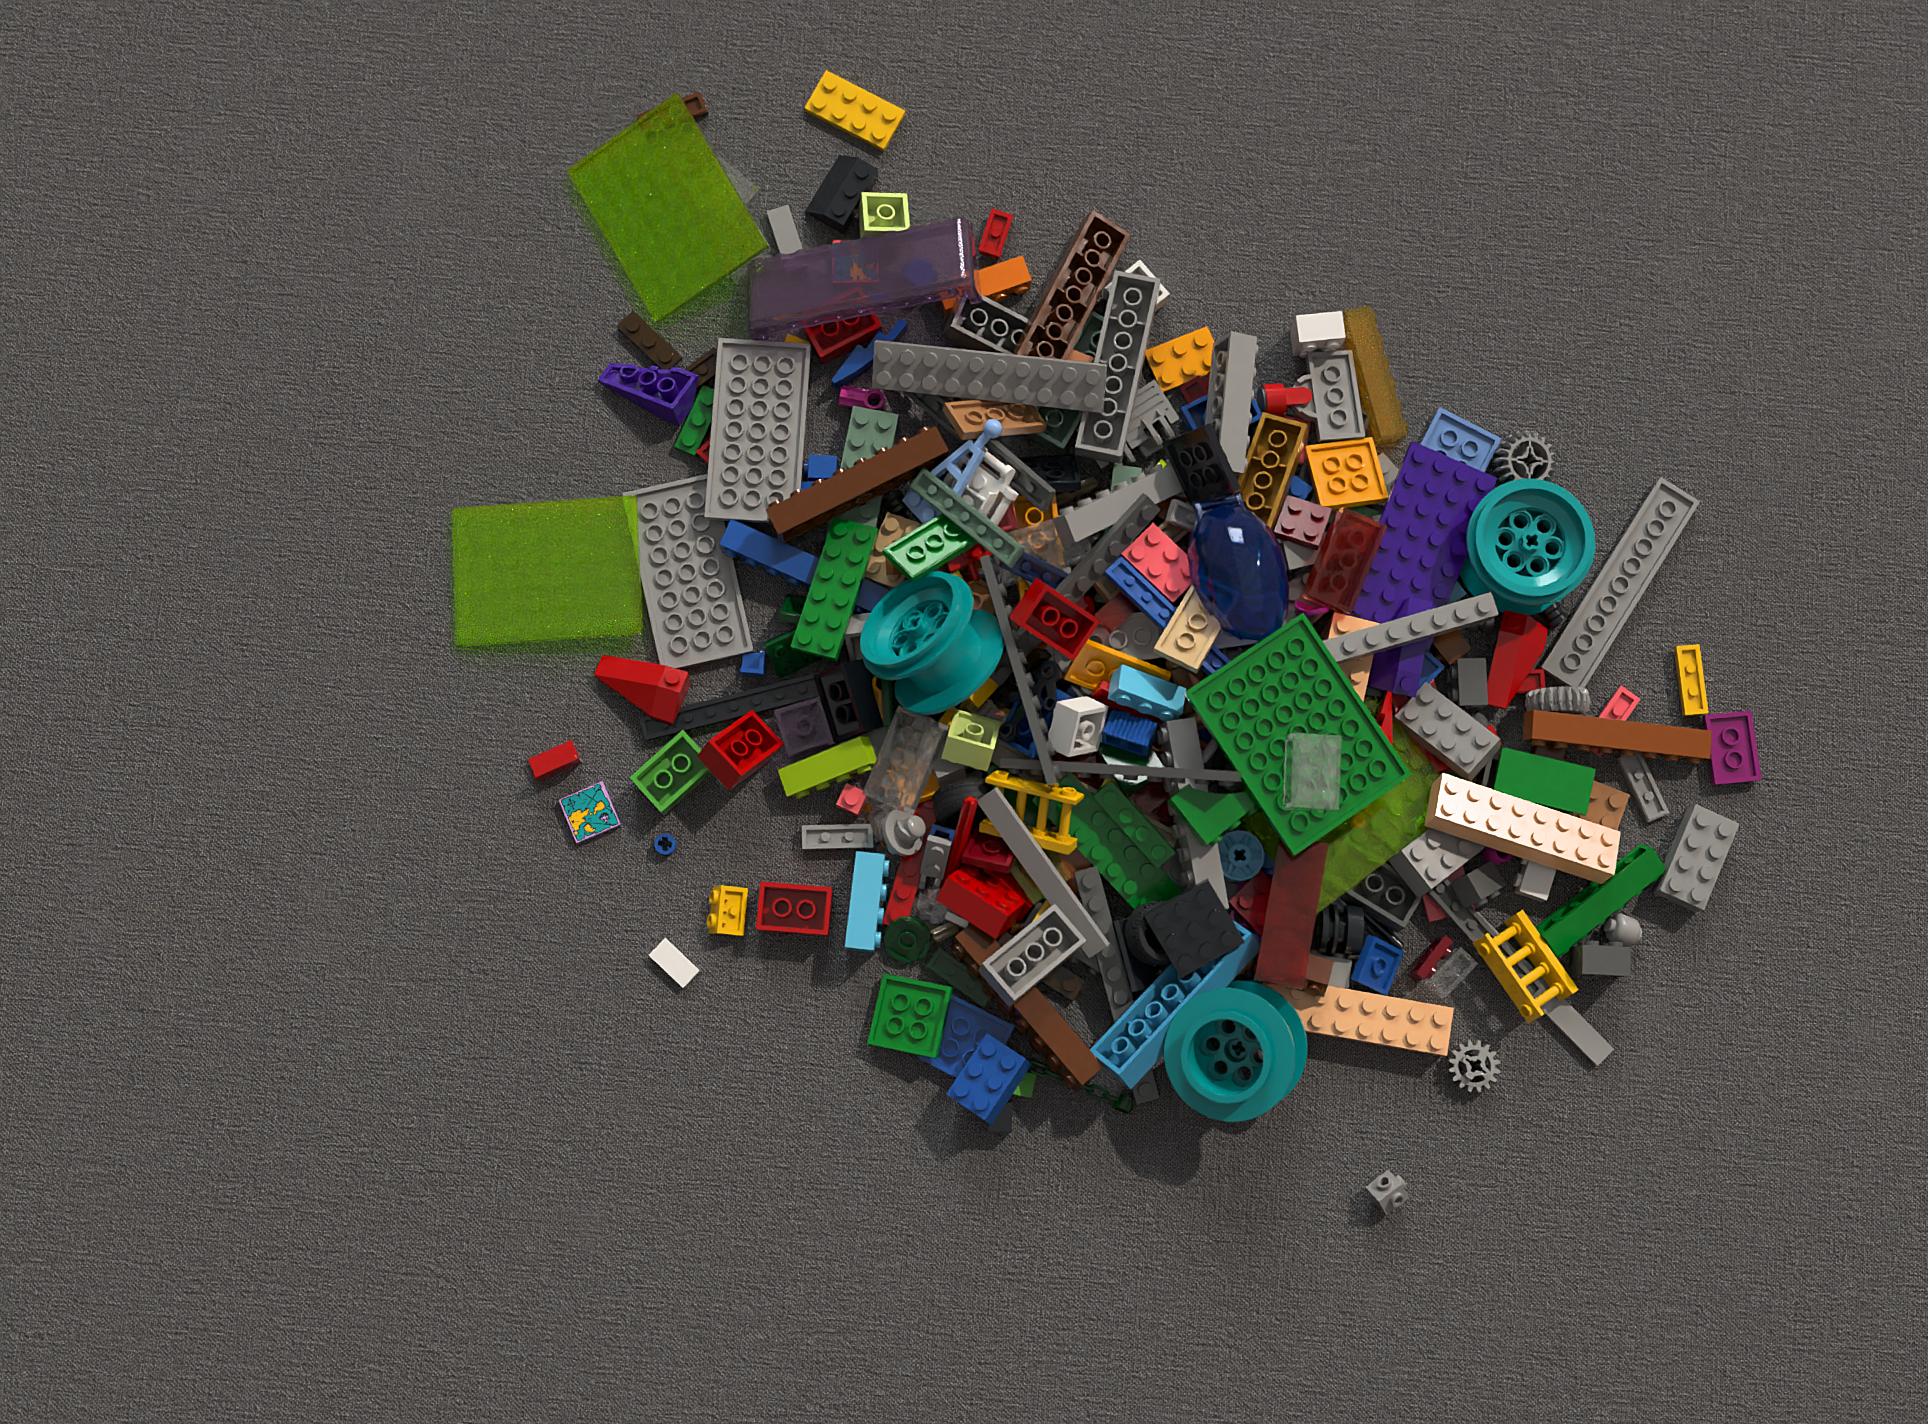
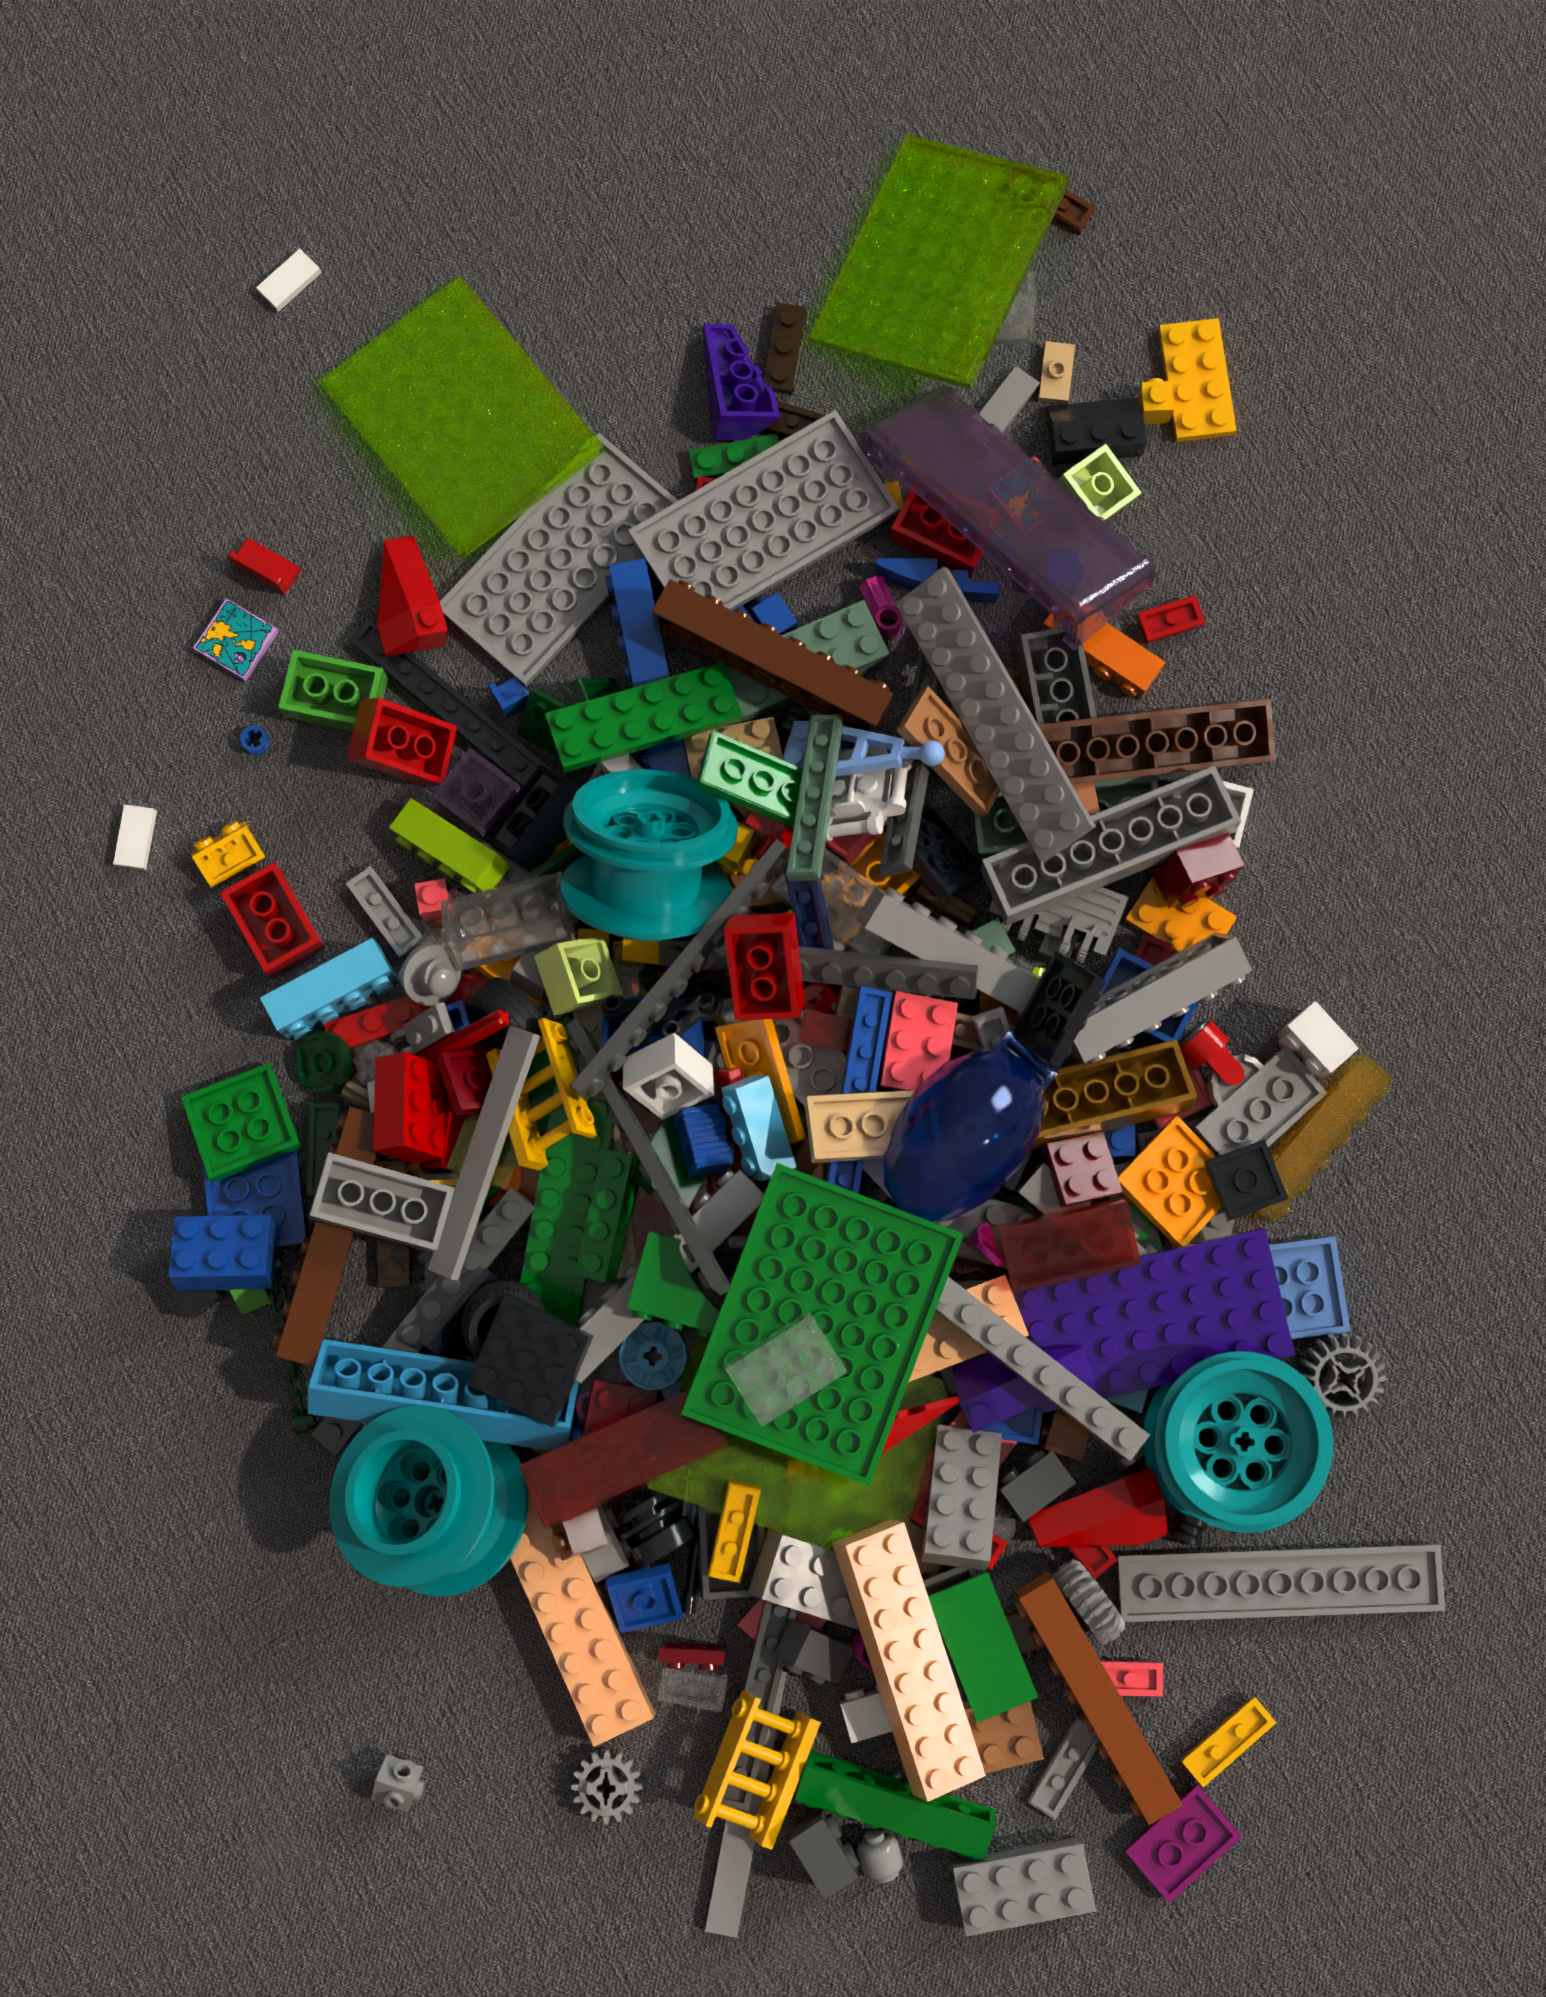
camera: 60 degrees right, 0 degrees up
(372, 618) = (289, 280): none -> white tile
(788, 190) = (1056, 372): none -> tan plate
(852, 143) = (1156, 401): none -> yellow brick
(1168, 327) = (1198, 871): none -> dark red brick
(1372, 433) = (1246, 1180): none -> black tile
(1377, 879) = (734, 1531): none -> yellow tile

